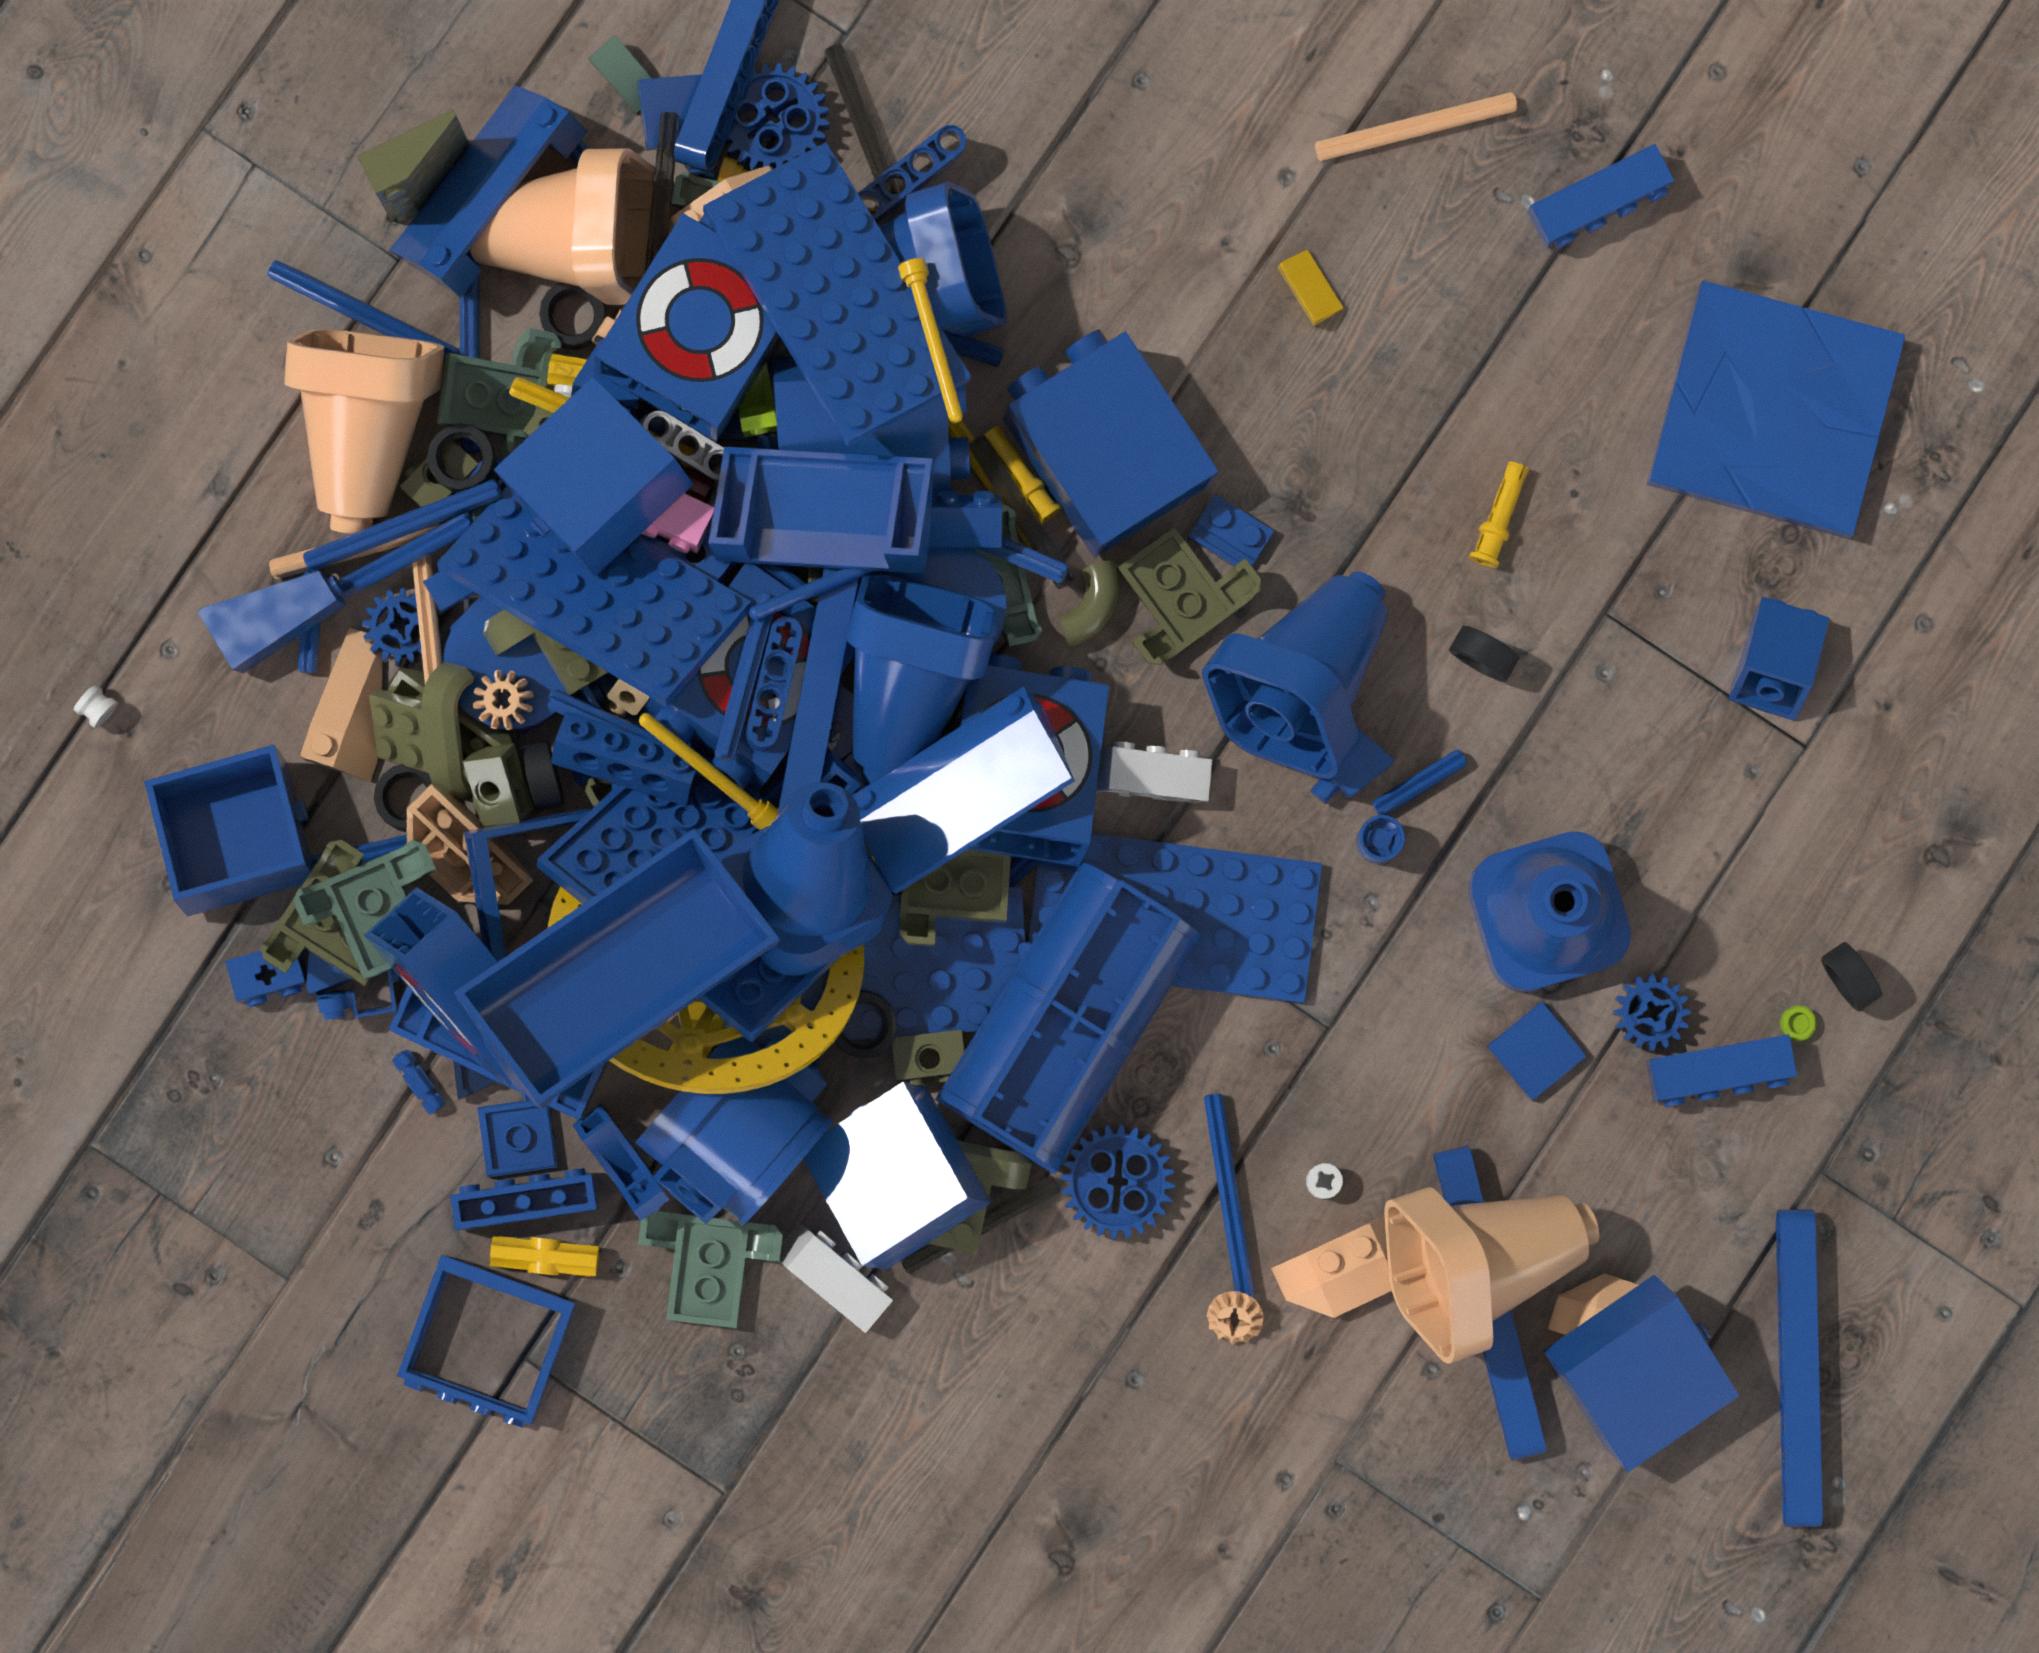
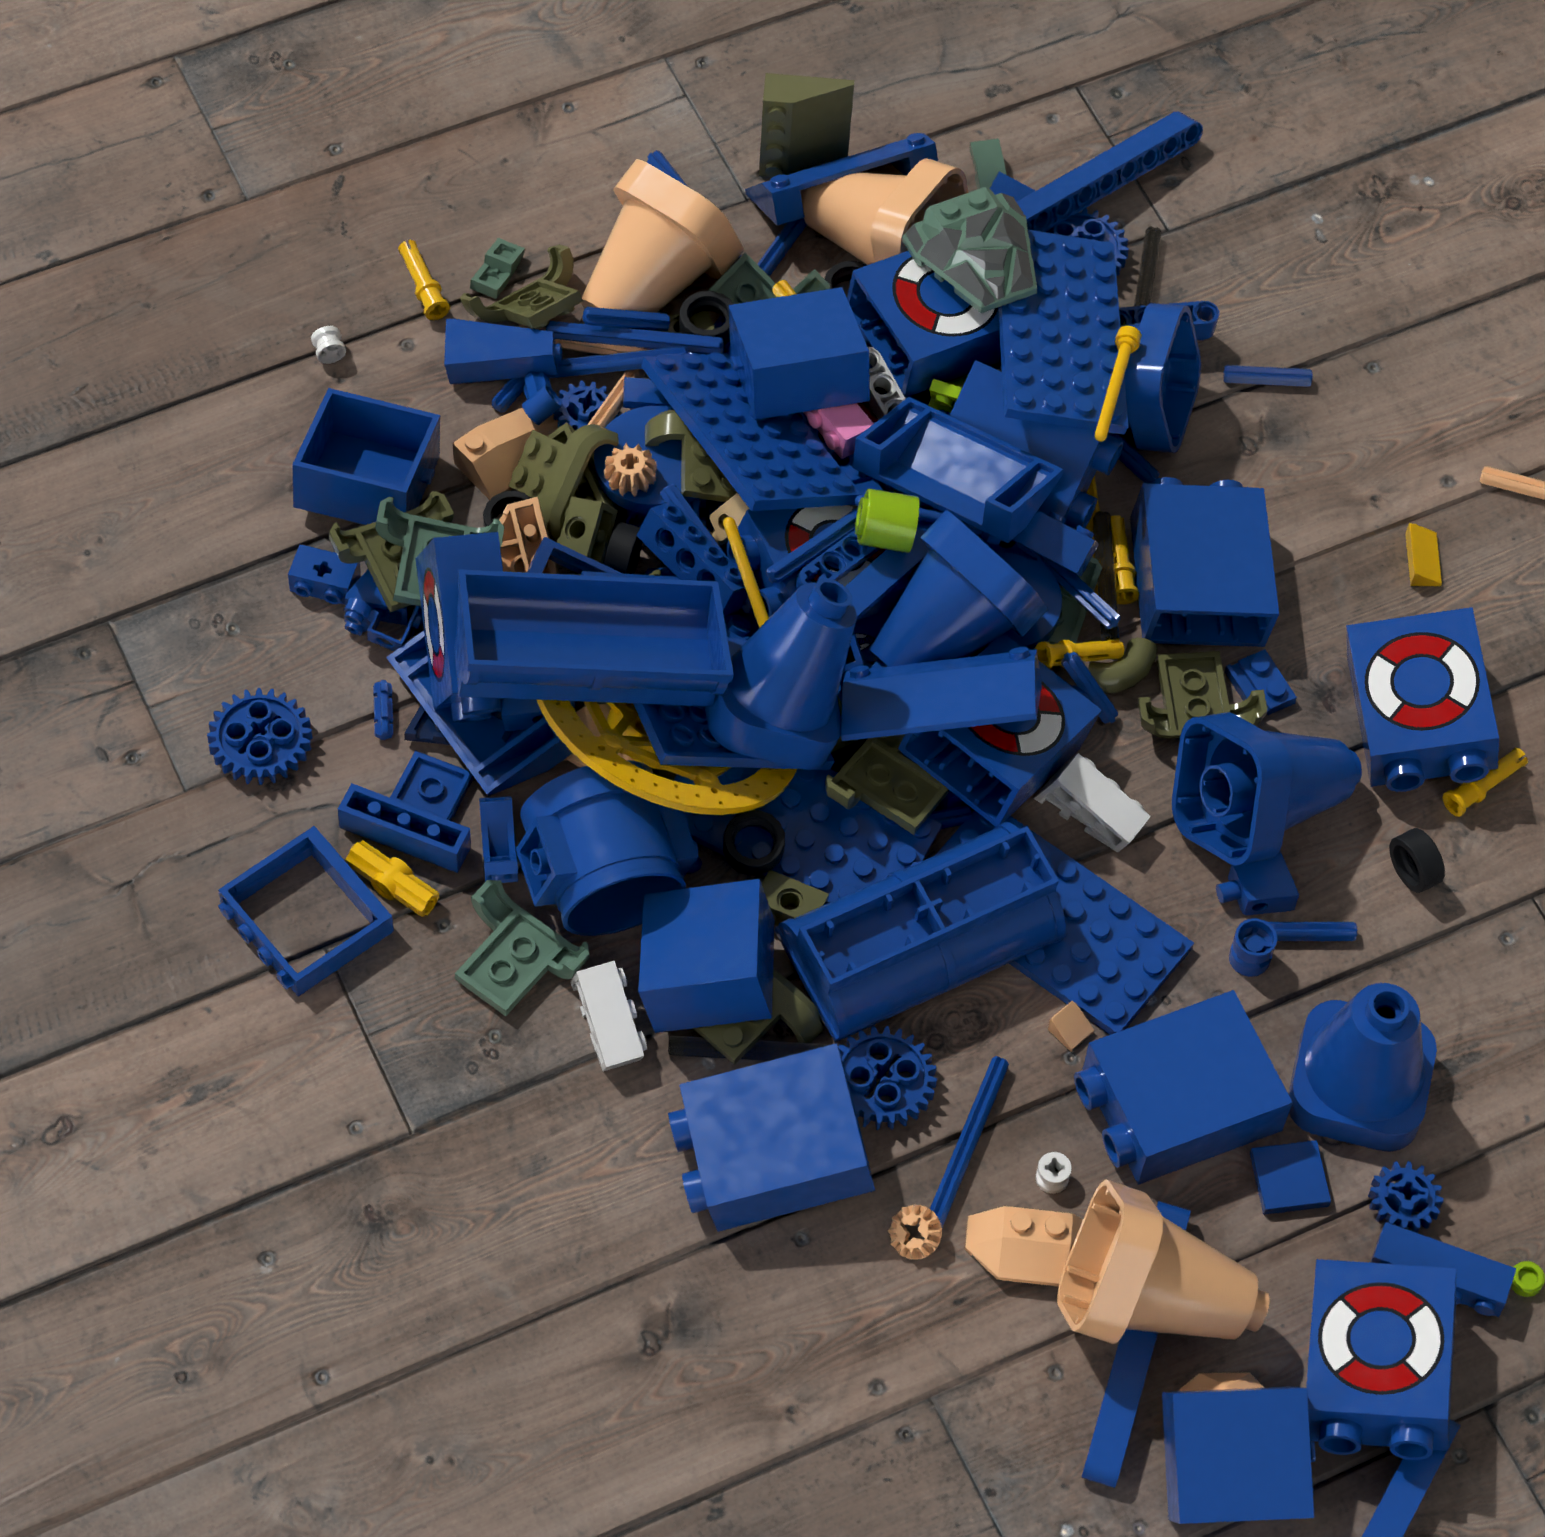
camera: 30 degrees right, 25 degrees down
(150, 578) = (427, 289): none -> yellow pin
(201, 506) = (497, 269): none -> sand green slope
(267, 532) = (537, 301): none -> olive piece
(290, 1179) = (259, 736): none -> blue gear
(355, 650) = (540, 397): none -> blue piece
(383, 512) = (626, 319): none -> blue axle
(708, 258) = (978, 247): none -> wedge
(798, 627) = (887, 520): none -> lime piece
(1040, 637) = (1052, 654): none -> yellow pin
(1044, 160) = (1267, 376): none -> blue axle
(1061, 1318) = (772, 1139): none -> blue brick
(1078, 656) = (1085, 680): none -> blue axle
(1257, 1020) = (1070, 1026): none -> light nougat slope
(1396, 1033) = (1183, 1088): none -> blue brick
(1401, 476) = (1422, 699): none -> blue brick
(1717, 1203) = (1381, 1357): none -> blue brick

